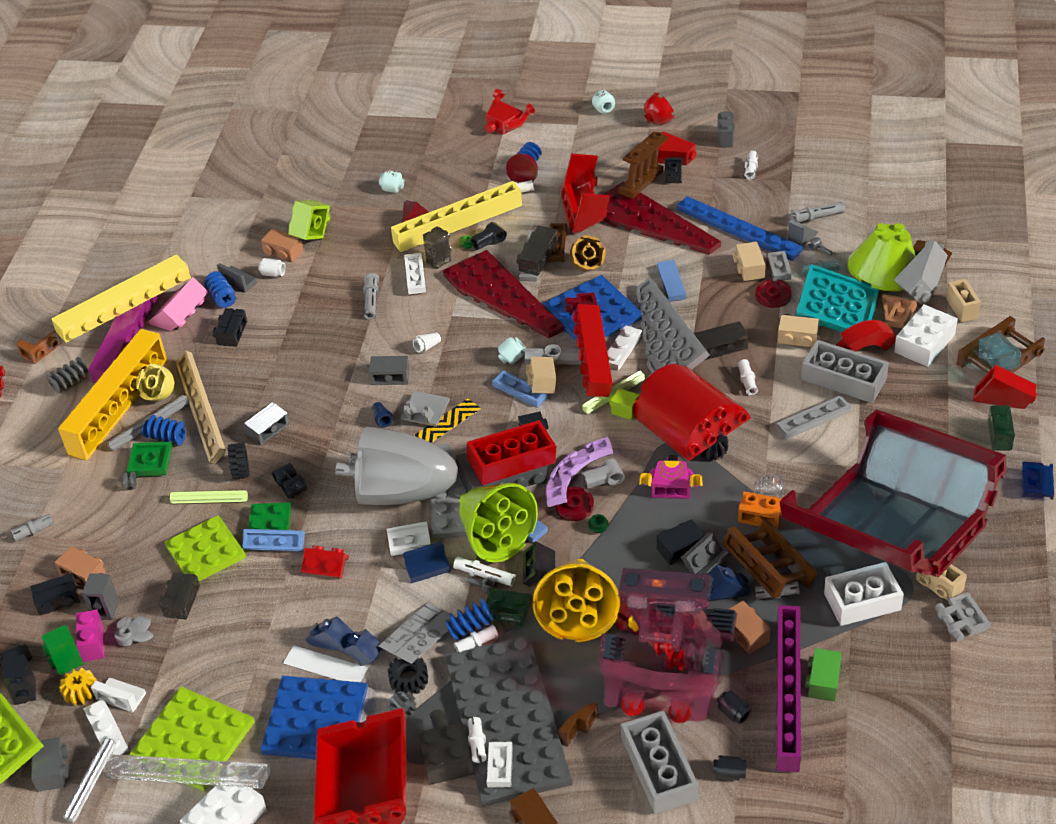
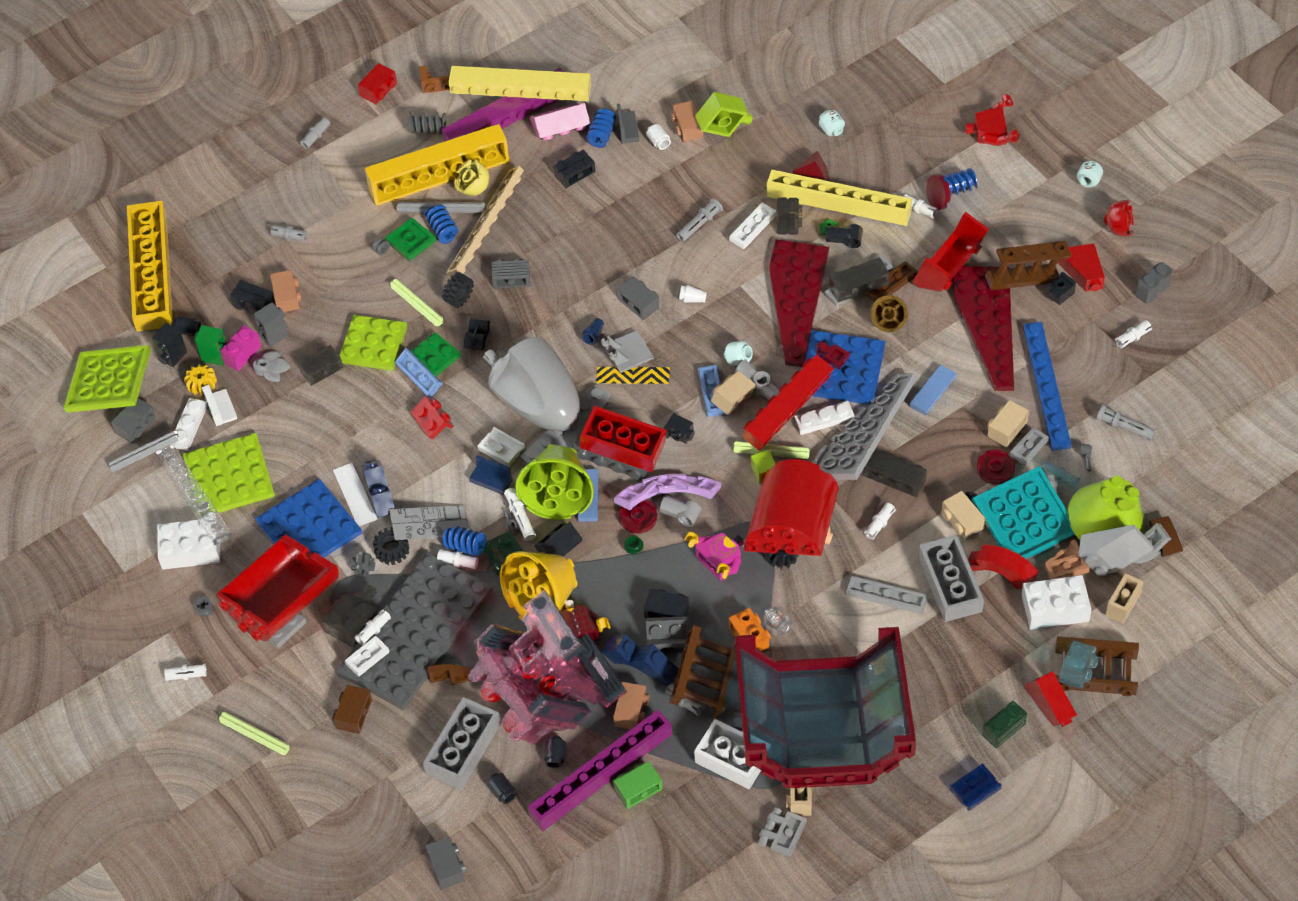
camera: 45 degrees right, 10 degrees up
(800, 233) = (1087, 430): dark grey slope -> none

